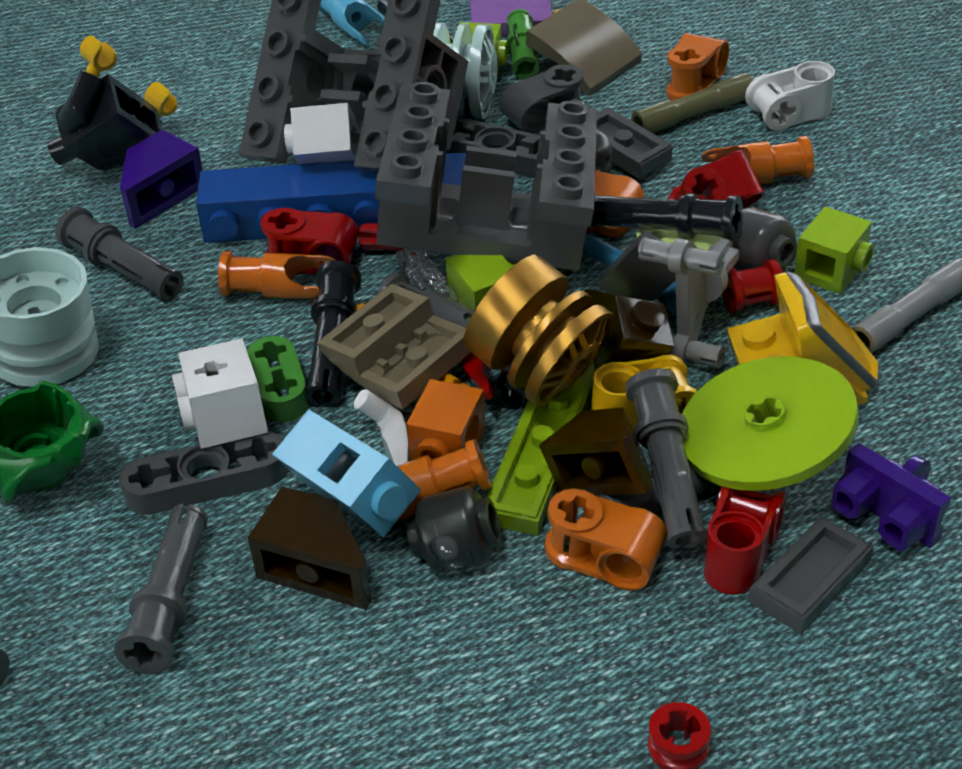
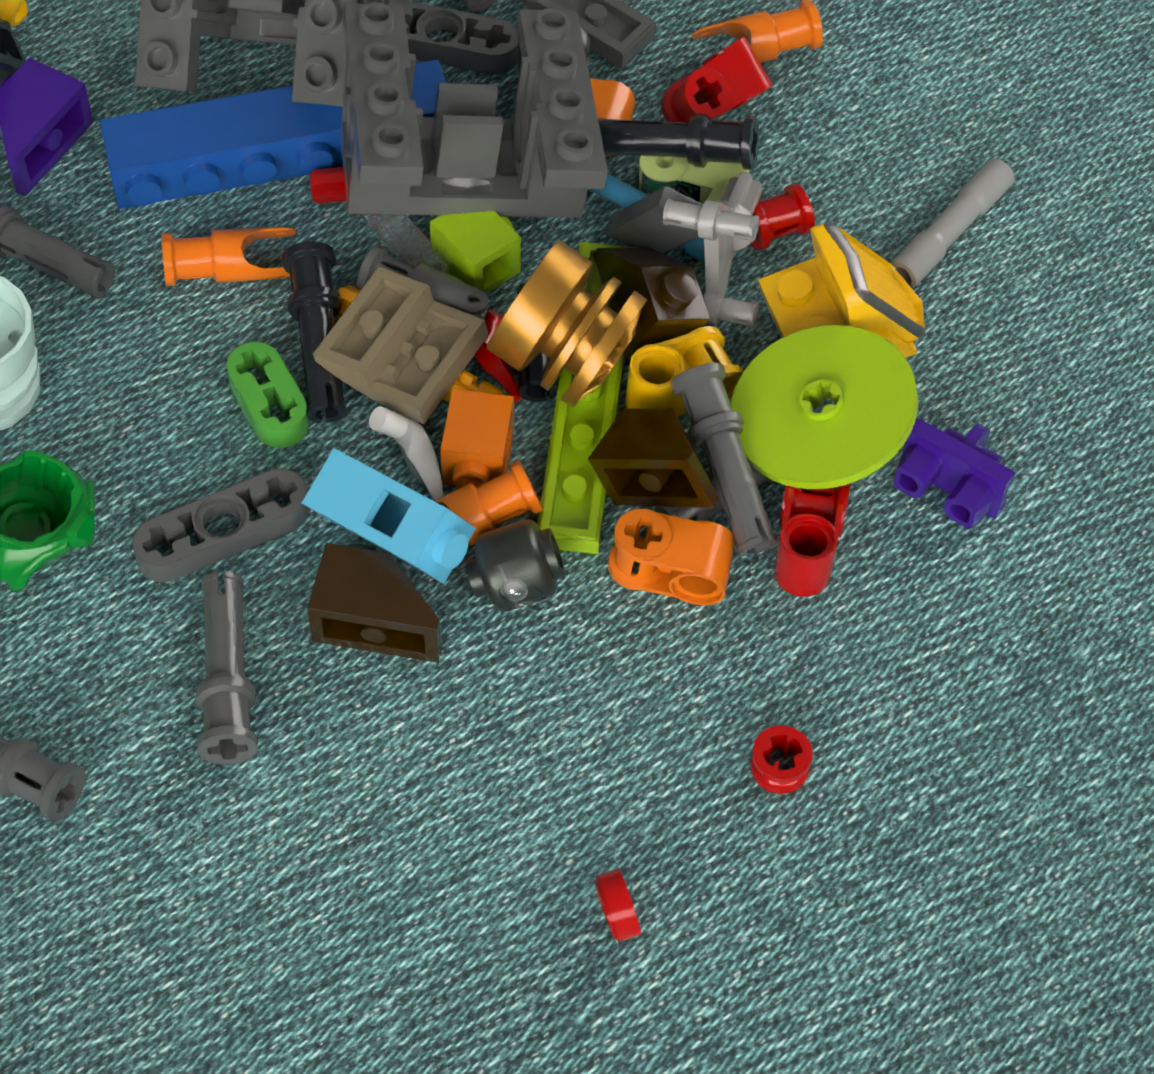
camera: 15 degrees left, 15 degrees up
(219, 394) = (217, 429): white brick -> none
(310, 234) = (257, 199): red piece -> none
(322, 133) = (243, 62): white brick -> none
(765, 238) = (784, 155): dark grey head -> none
(810, 575) = (882, 566): dark grey tile -> none
(834, 249) = (860, 158): lime brick -> none

